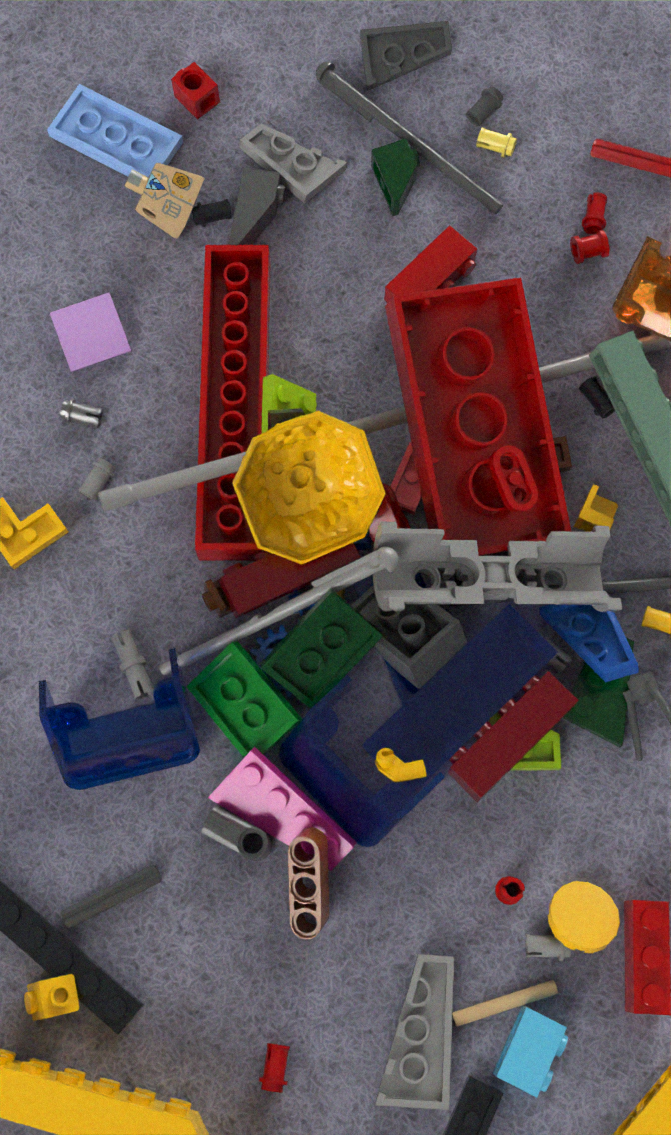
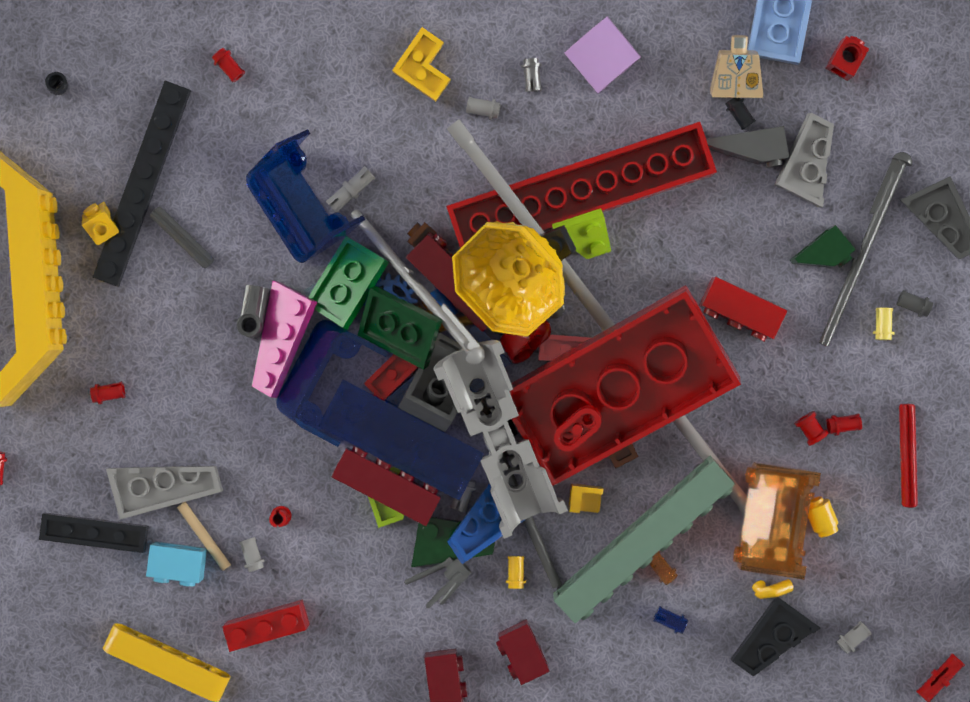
camera: 70 degrees right, 15 degrees up
(301, 897) = (224, 374): dark orange beam -> none
(374, 688) = (389, 376): none -> red plate
(396, 769) = (332, 410): yellow arm -> none
(583, 917) = (278, 573): yellow tile -> none
(597, 397) = (681, 471): black pin -> none

